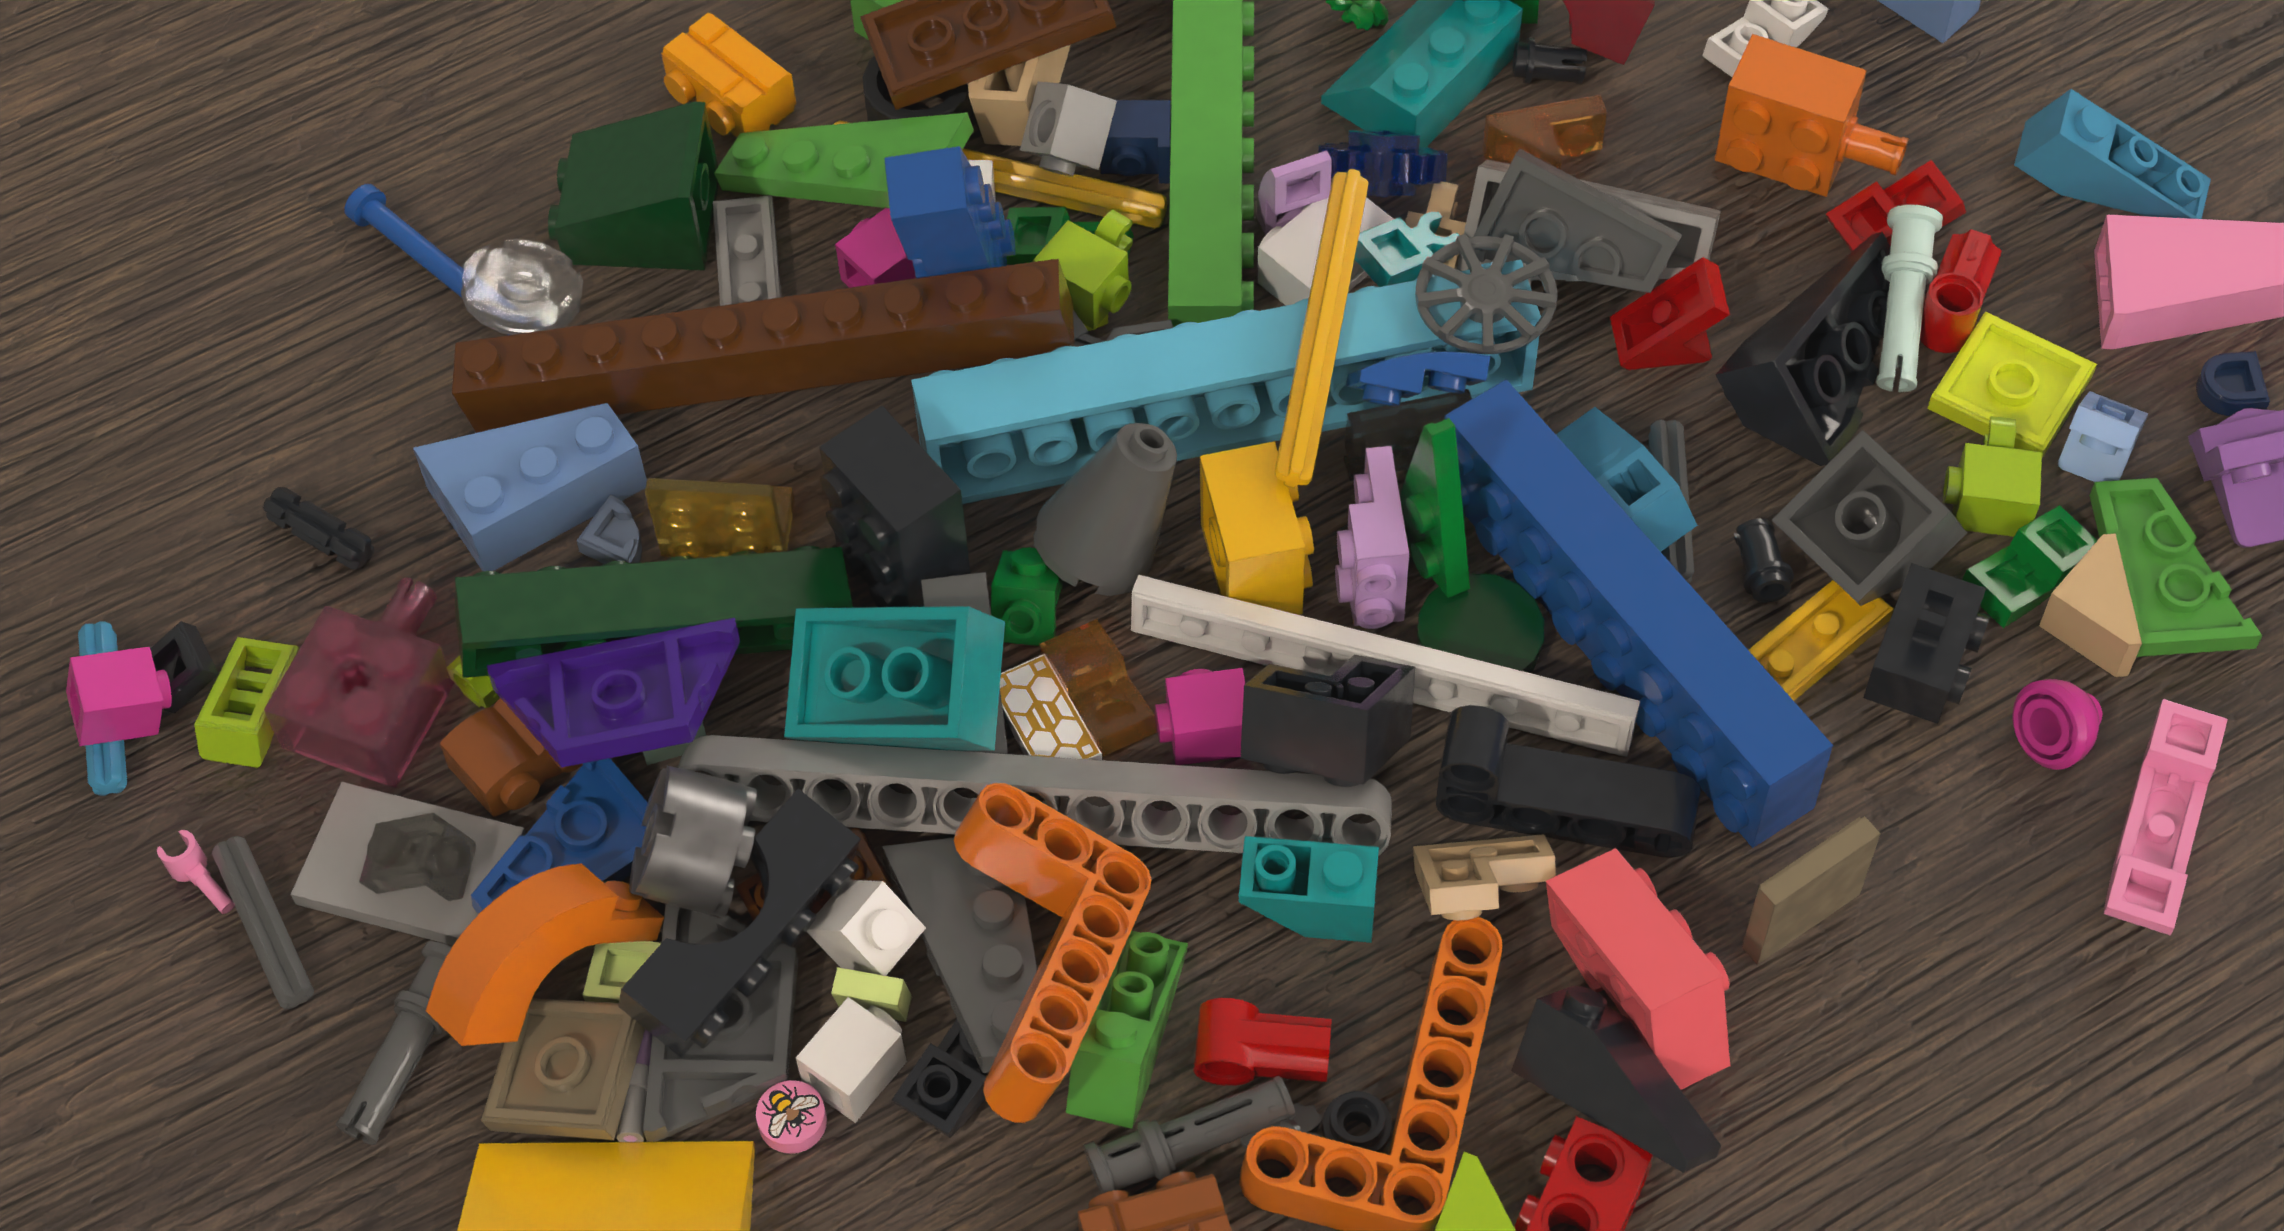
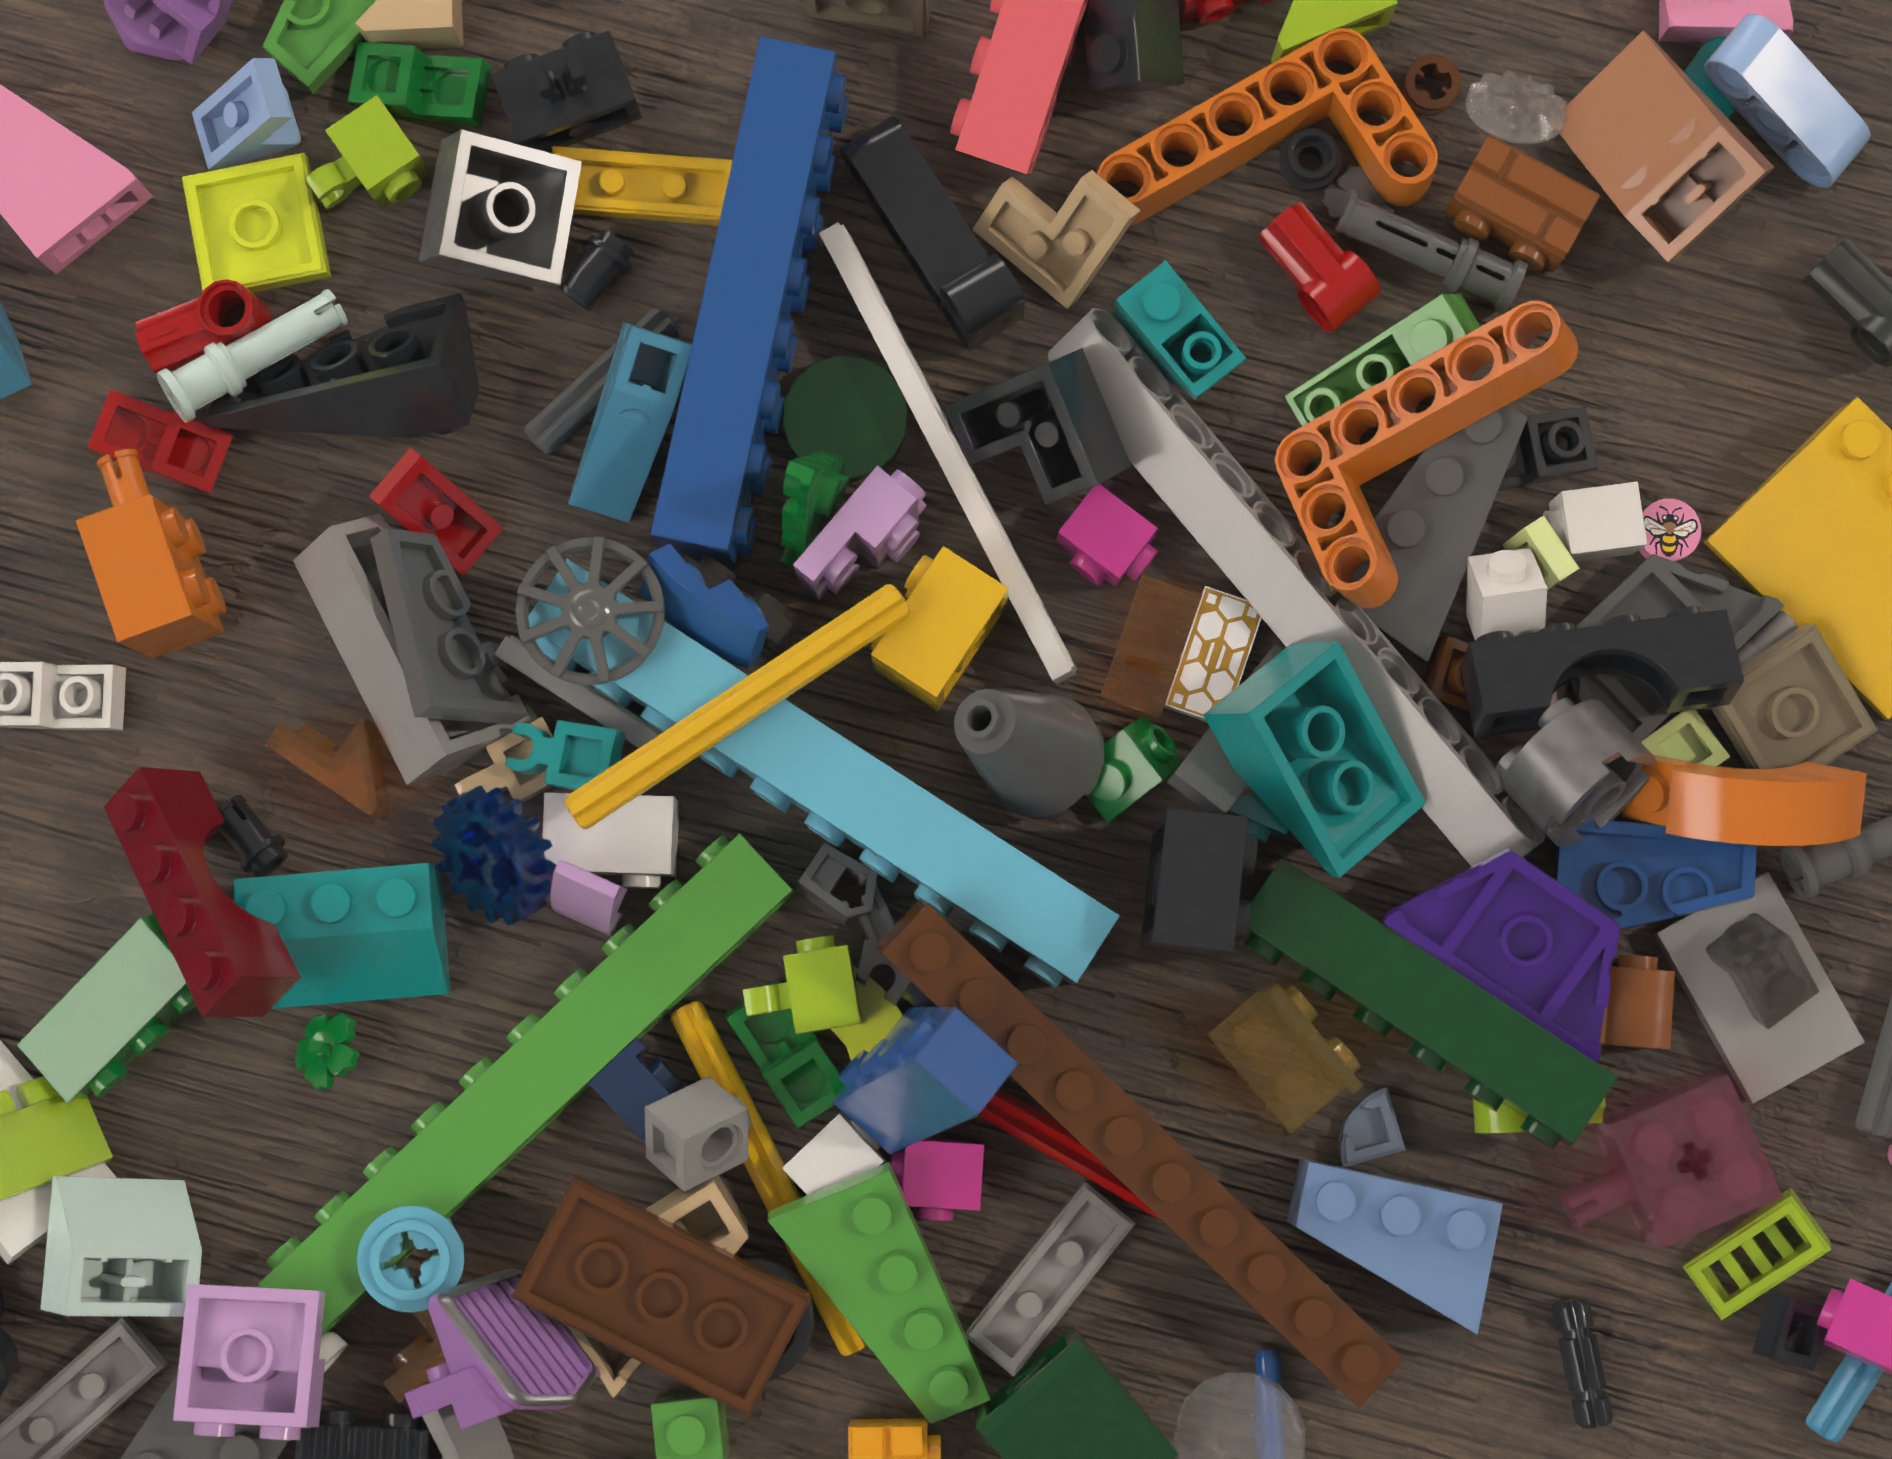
camera: 135 degrees left, 25 degrees up
(2232, 383) = (106, 72): dark blue tile -> none

